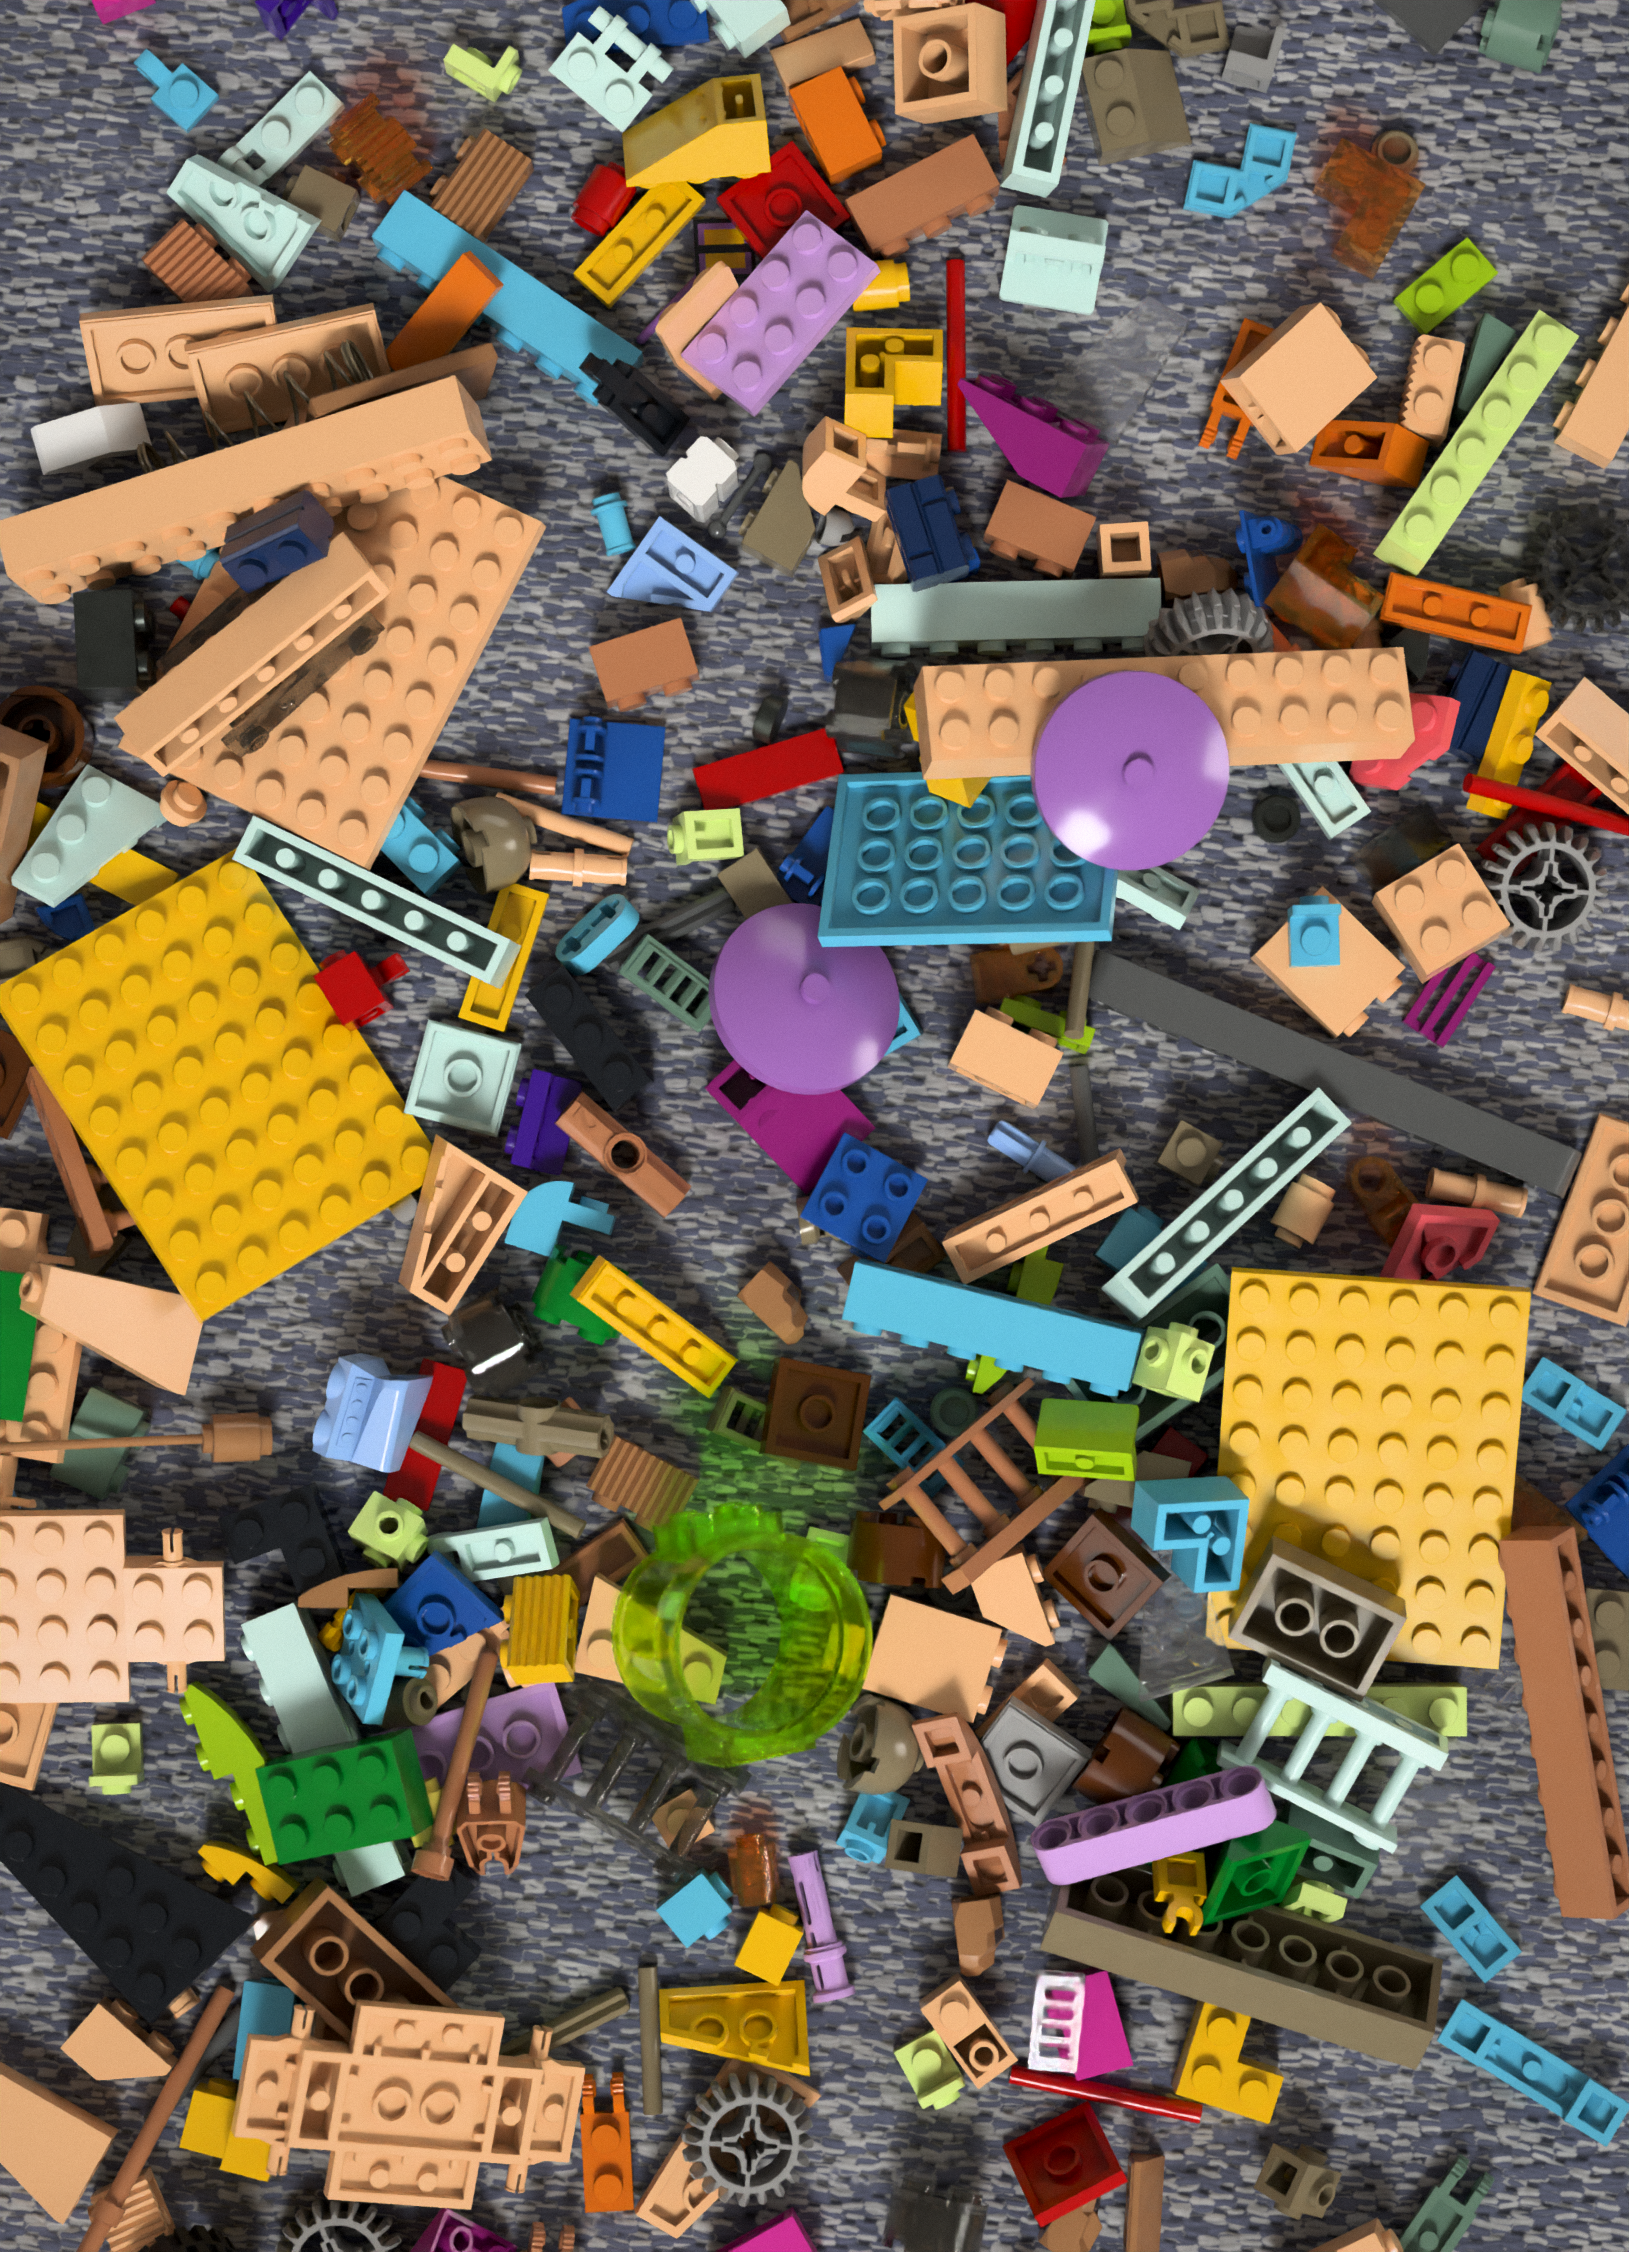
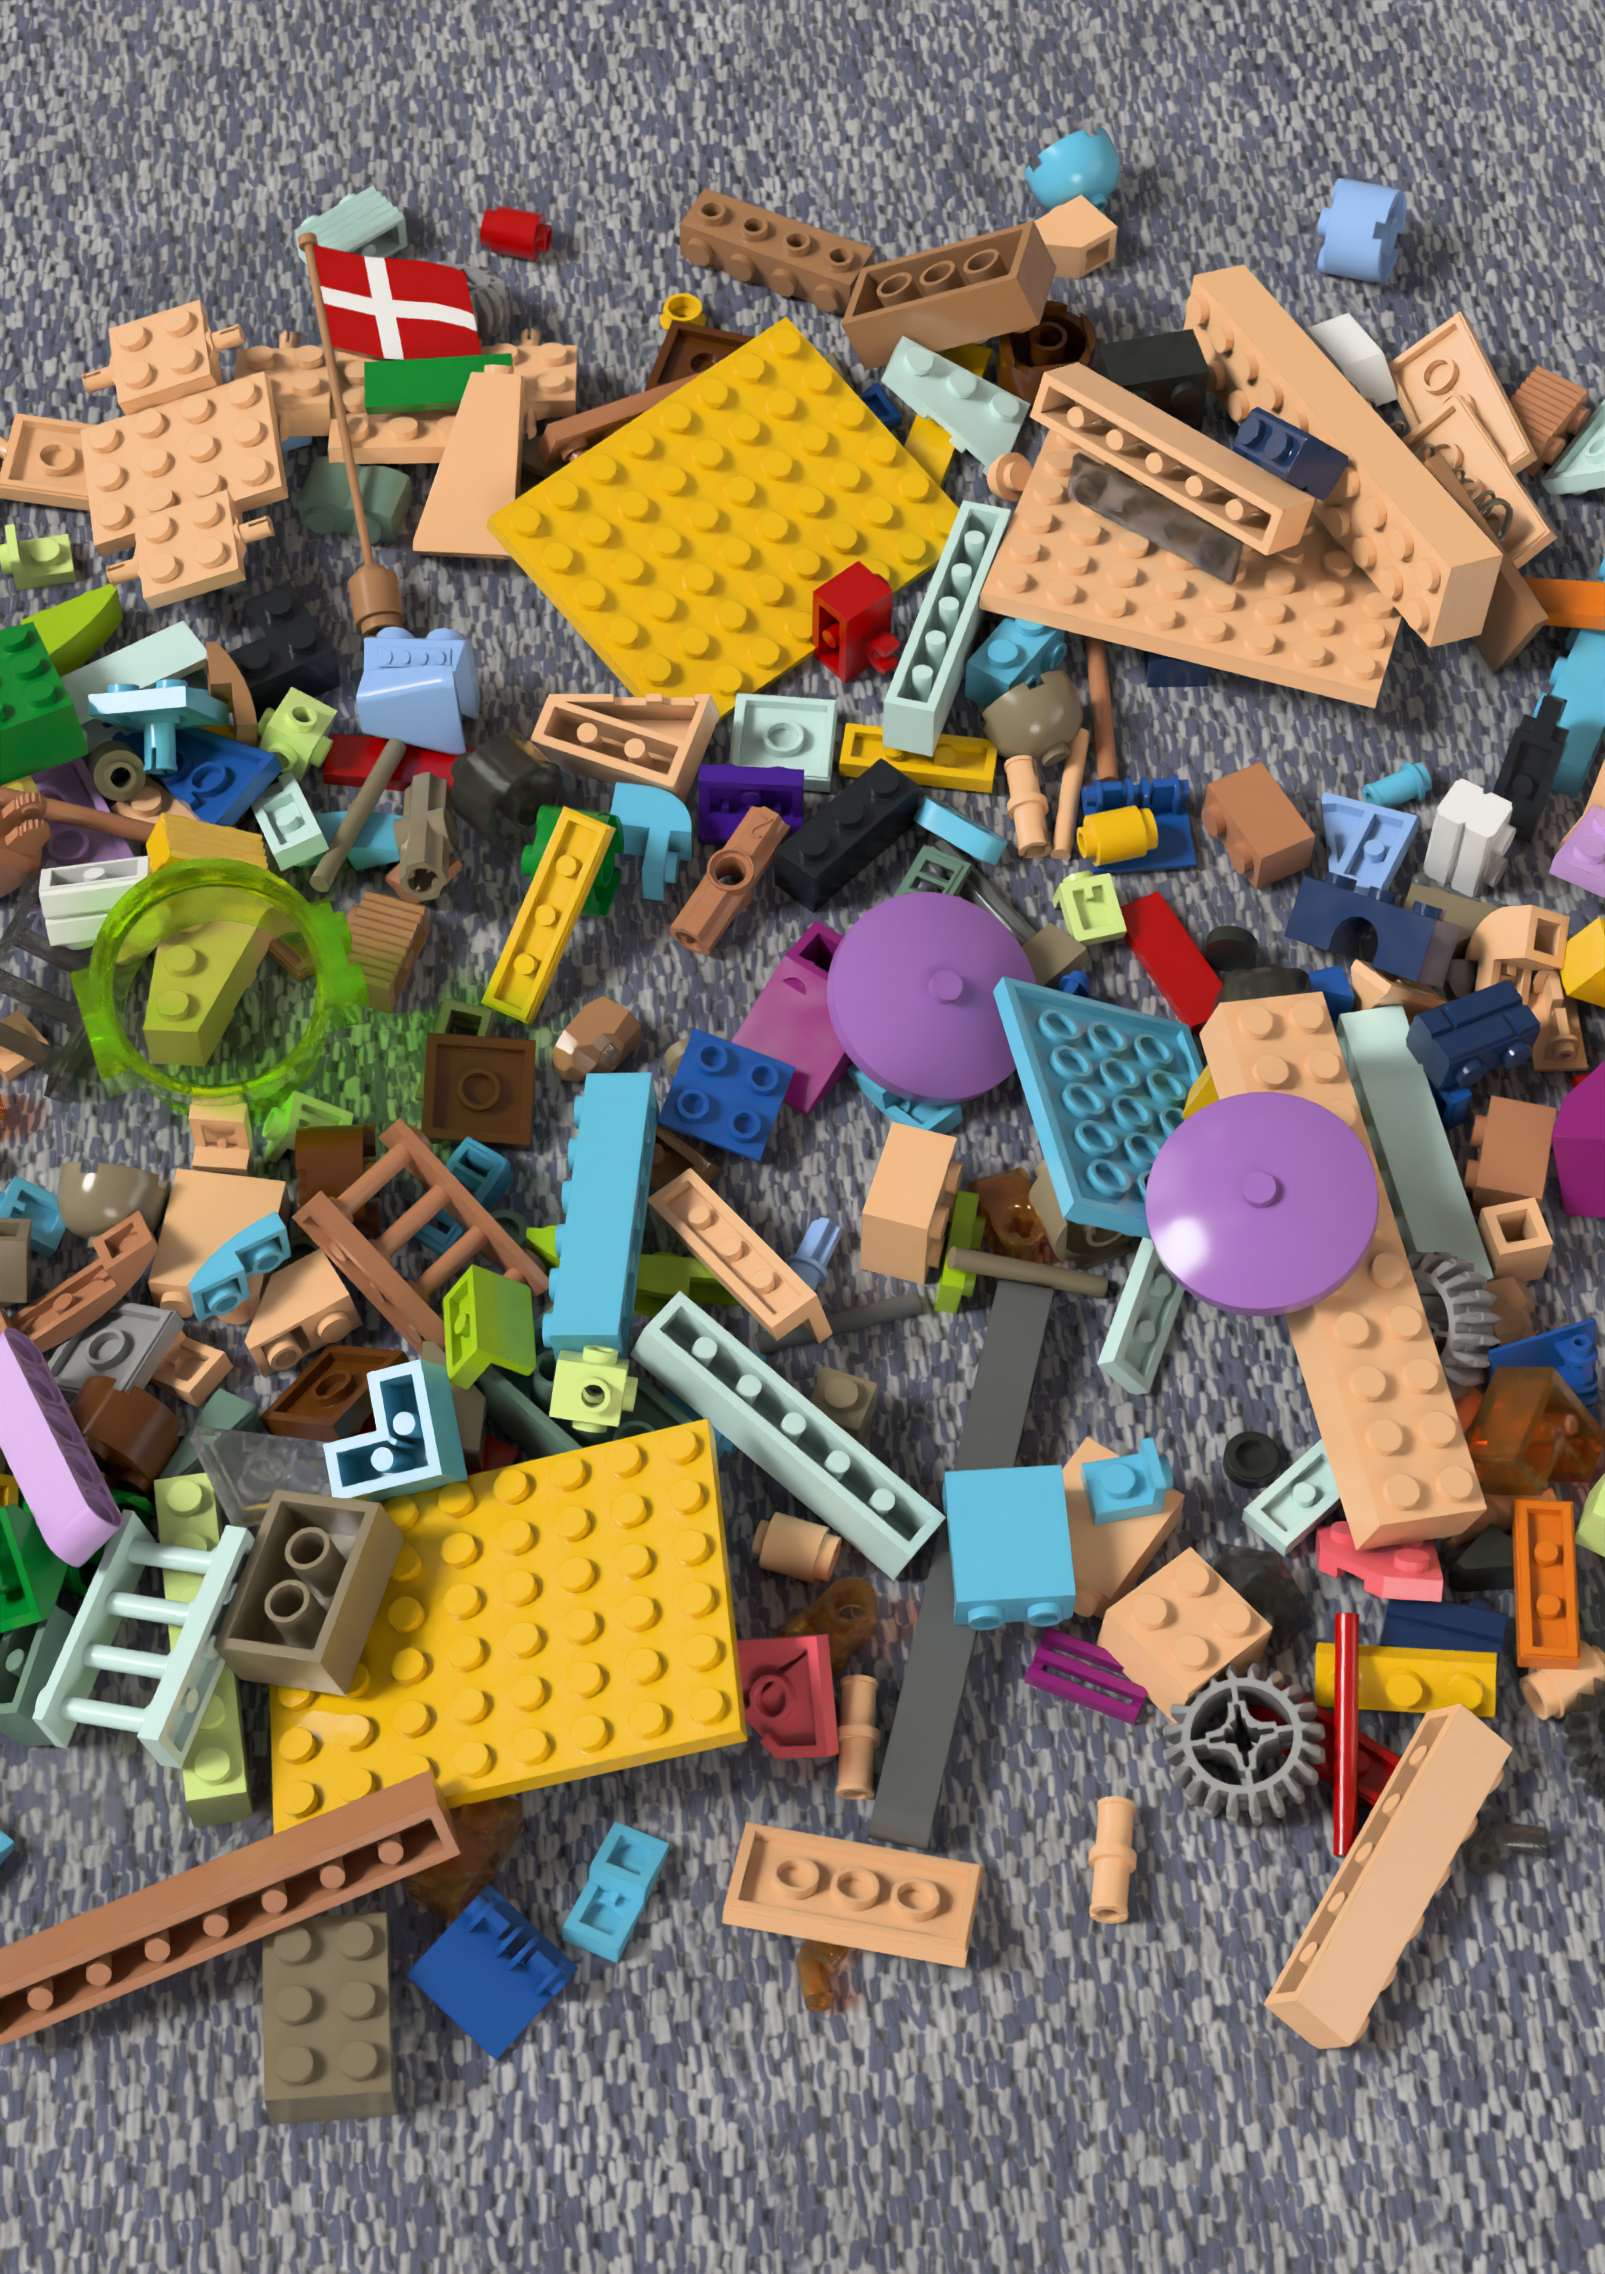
camera: 80 degrees right, 30 degrees down
(590, 1732) = (82, 895): none -> white brick
(636, 794) = (1117, 835): none -> yellow brick
(817, 561) = (1410, 941): none -> dark blue arch
(1000, 1660) = (223, 1278): none -> medium azure slope
(1360, 1041) = (1009, 1546): none -> medium azure panel

